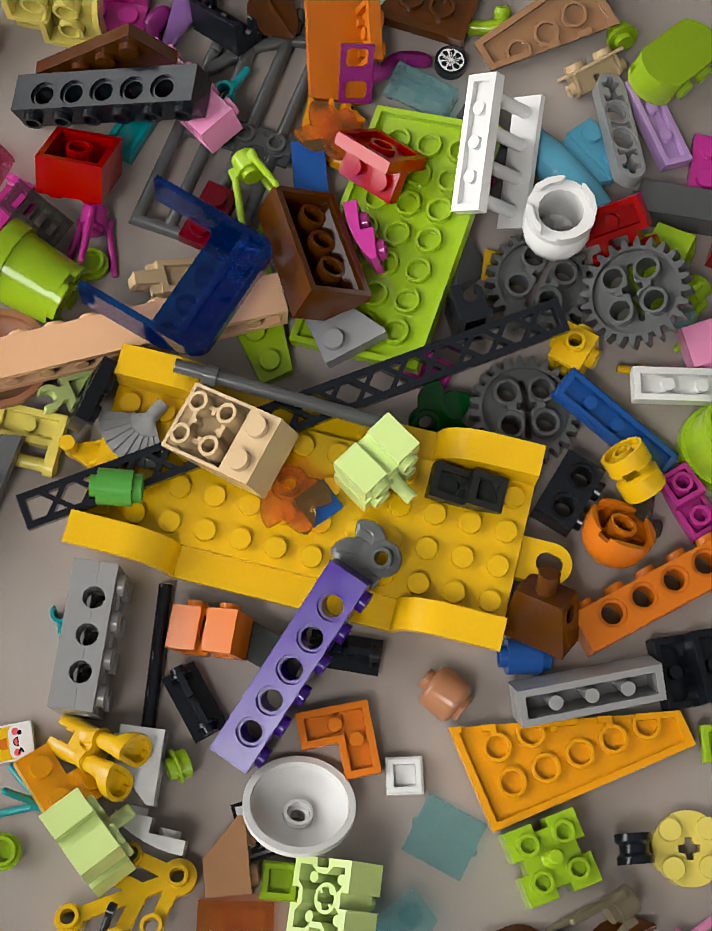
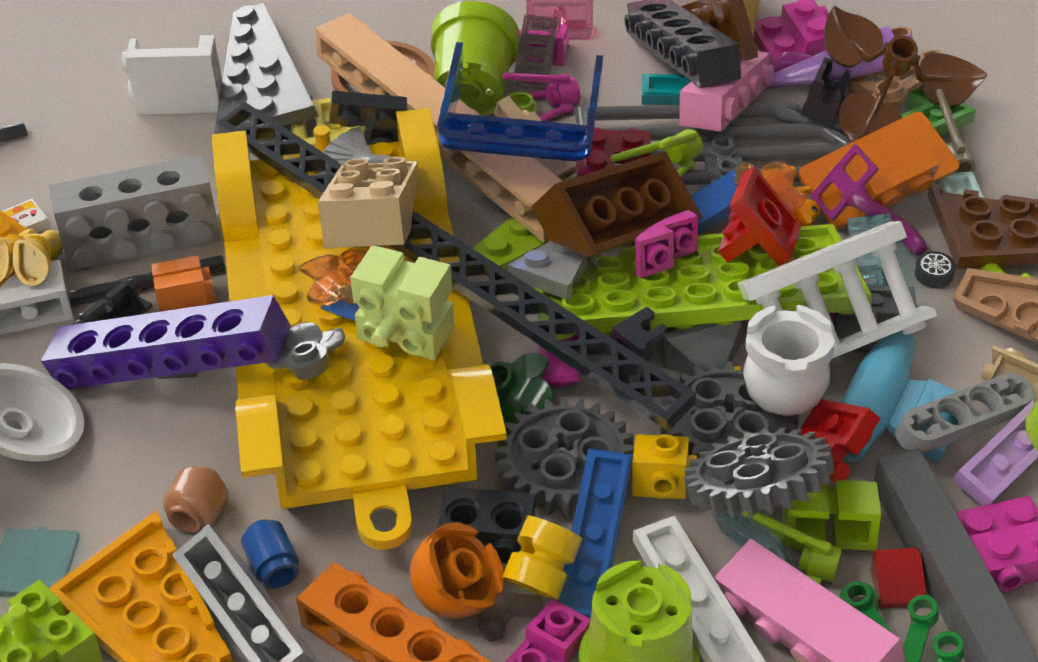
camera: 70 degrees right, 30 degrees down
(78, 165) = (592, 35): red brick -> none
(116, 487) = (280, 146): bright green brick -> none
(178, 765) = (38, 325): lime plate -> none
(212, 375) = (430, 170): dark grey bar -> none
(232, 85) = (755, 120): teal hand -> none
(348, 727) = (123, 435): orange plate -> none
(354, 655) = (210, 407): black hinge -> none
(404, 776) = (91, 504): white tile -> none
(466, 489) = (425, 399): pearl dark grey slope -> none
(544, 613) = (327, 517): reddish brown torso -> none

